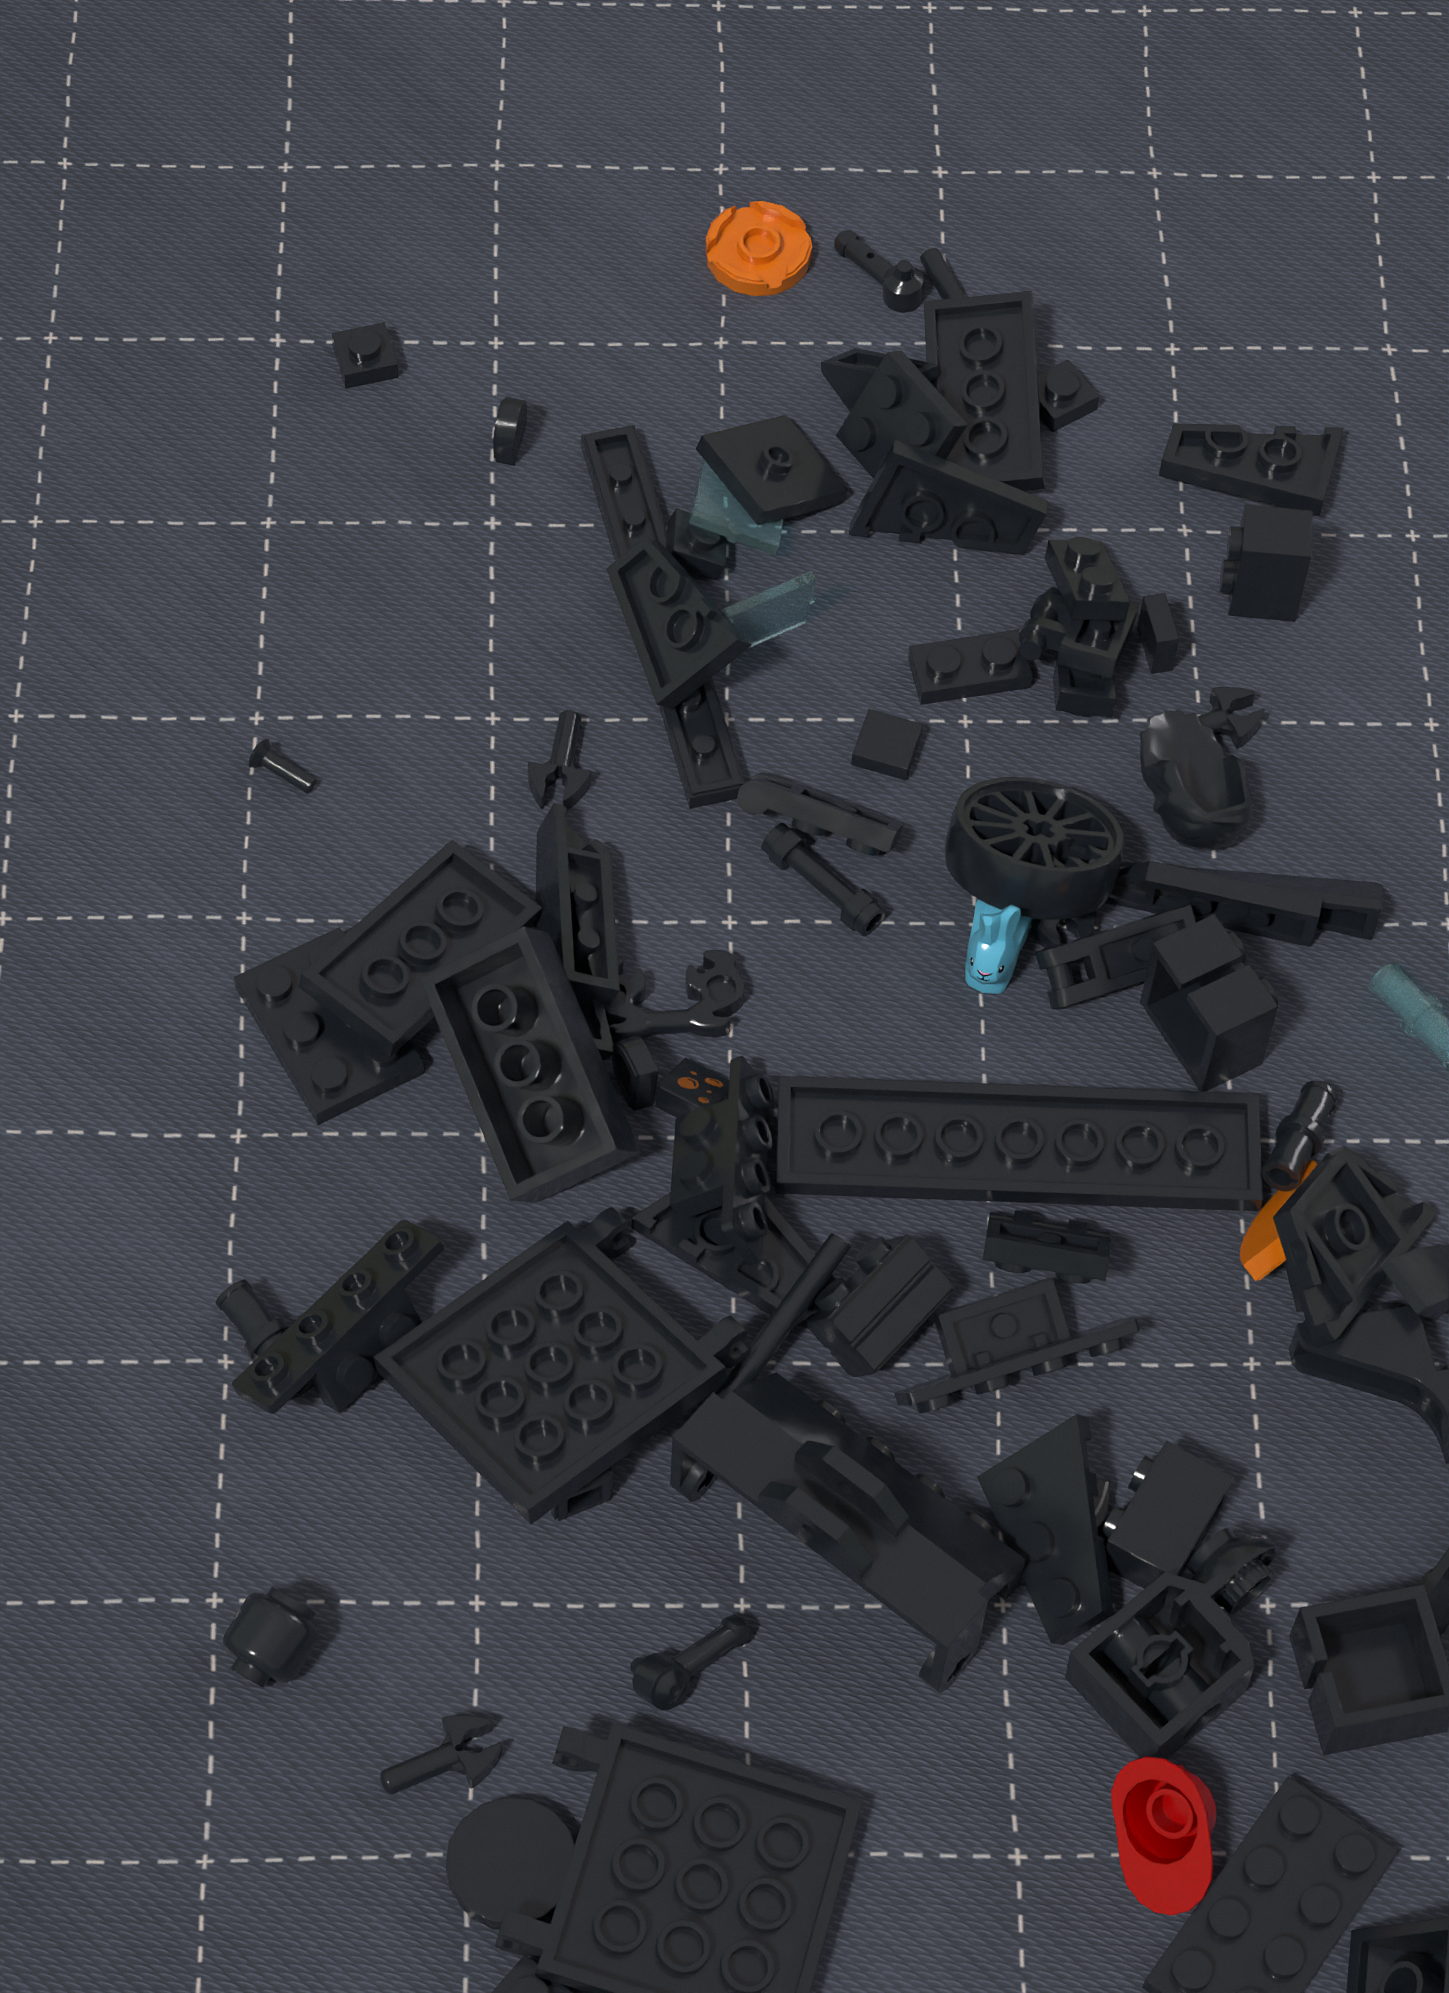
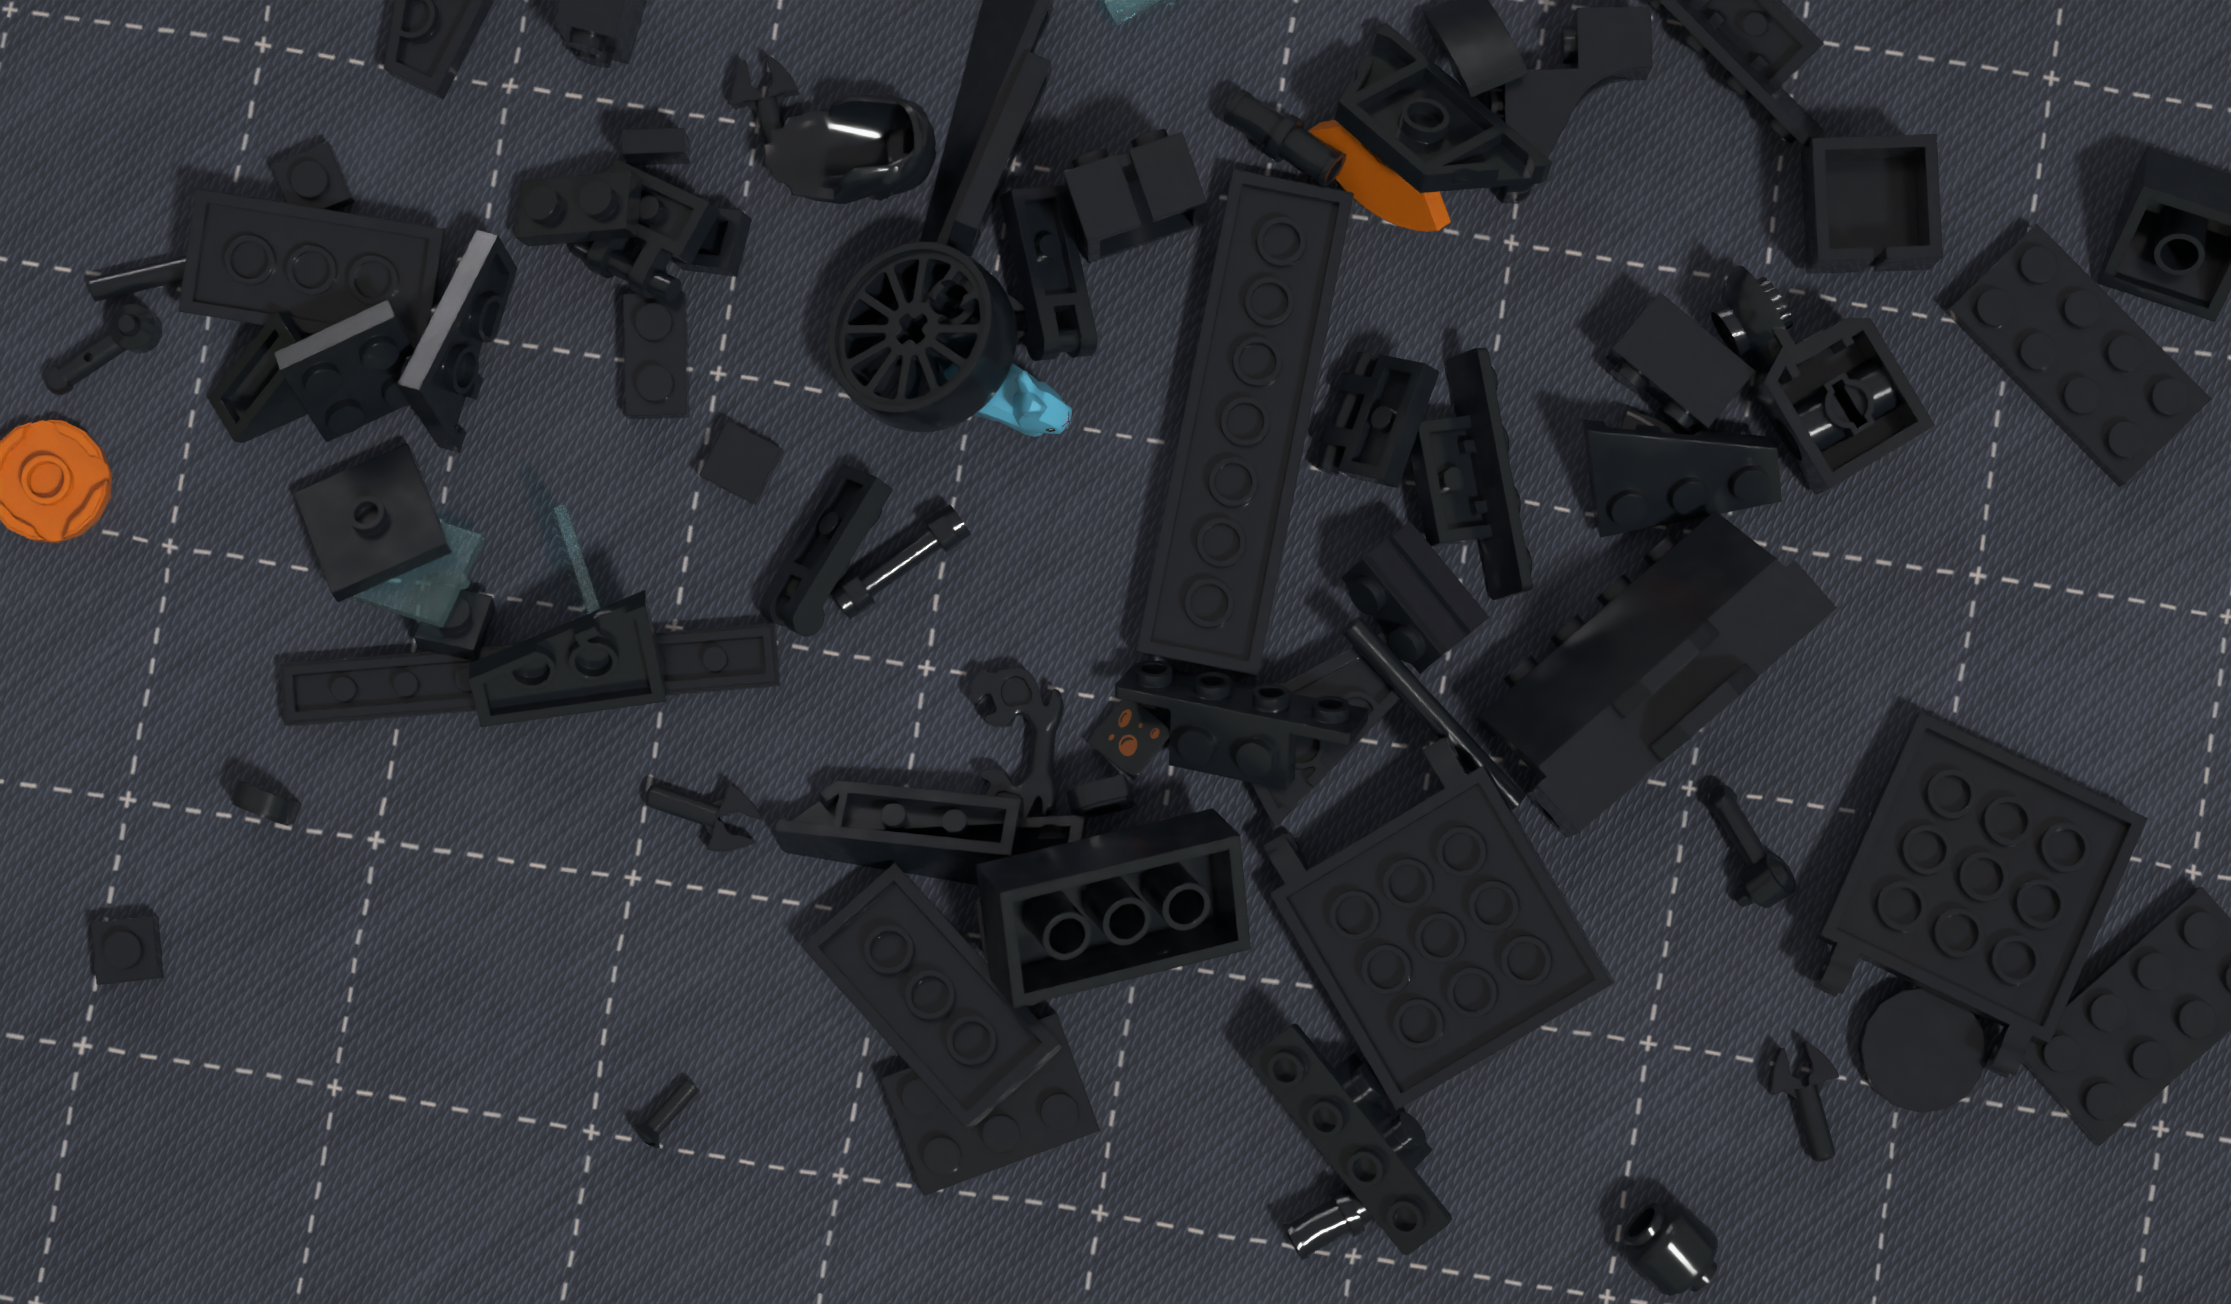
camera: 75 degrees left, 25 degrees up
(1164, 1833) = (1995, 434): red piece -> none

